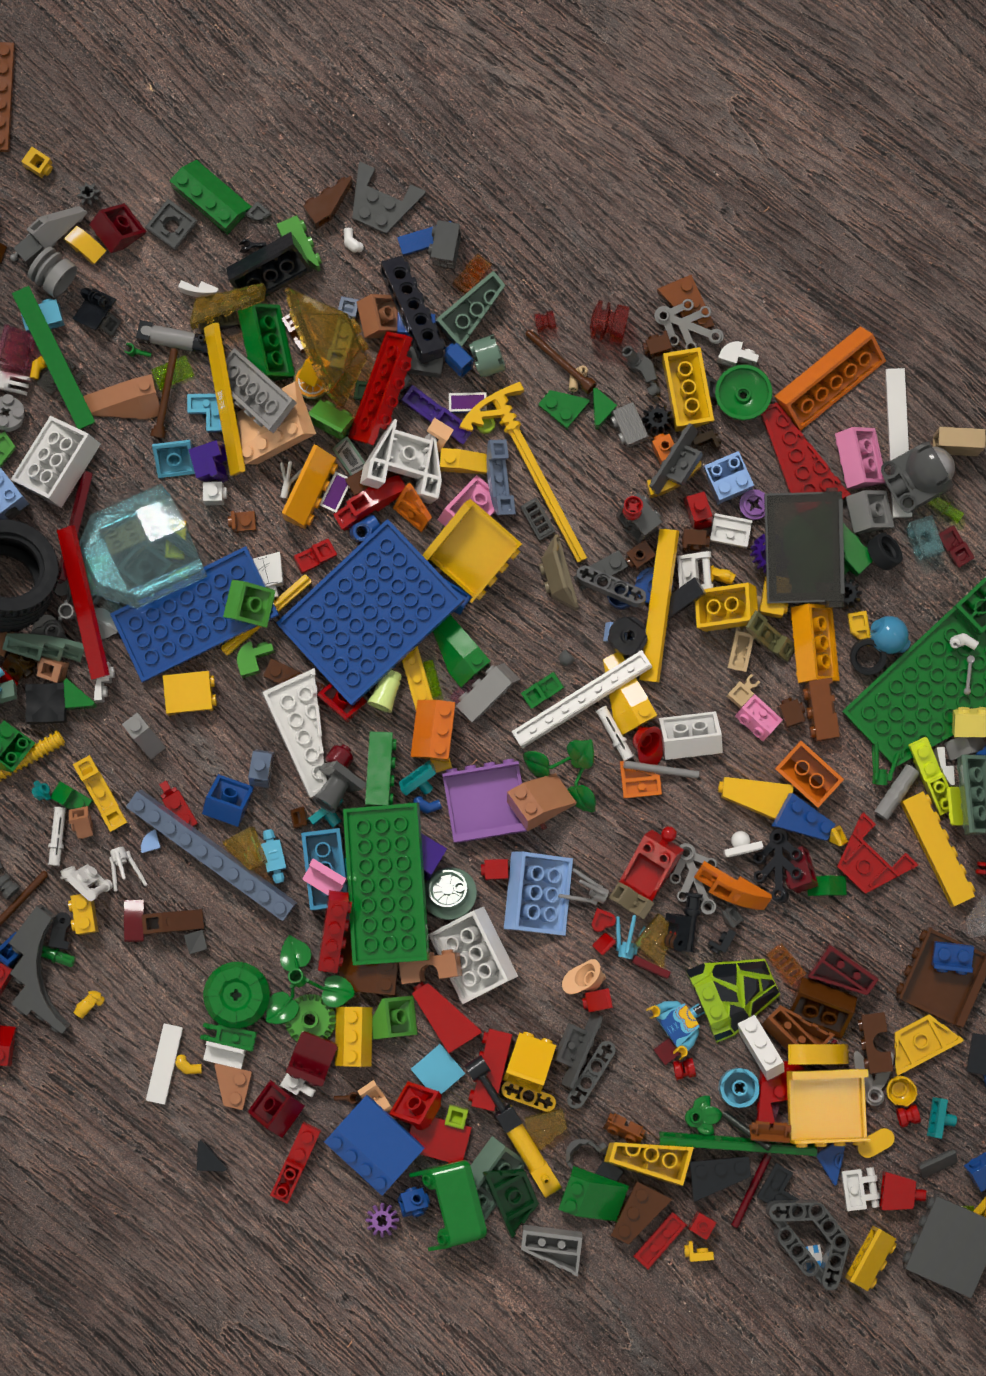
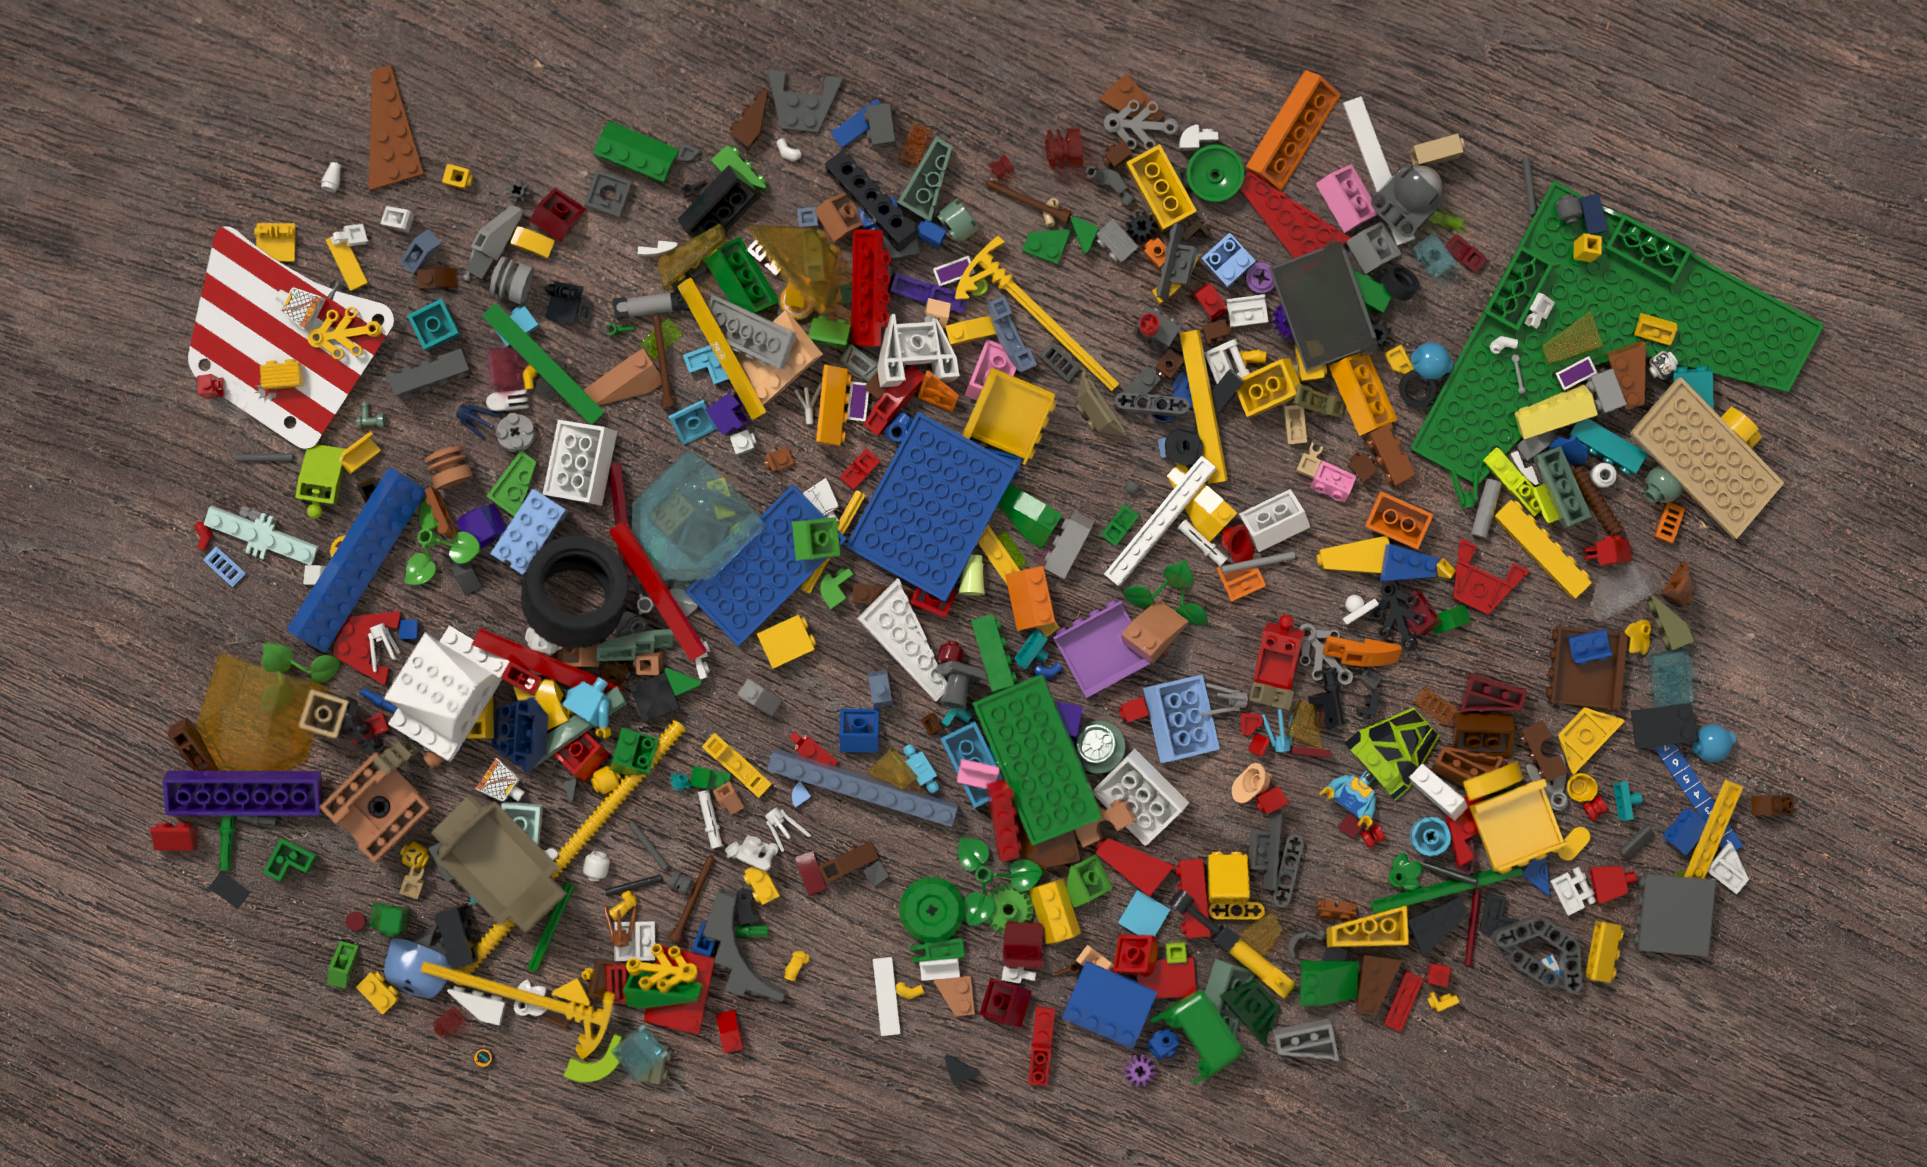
camera: 15 degrees left, 5 degrees up
(764, 1132) = (1467, 869): dark orange hinge -> none

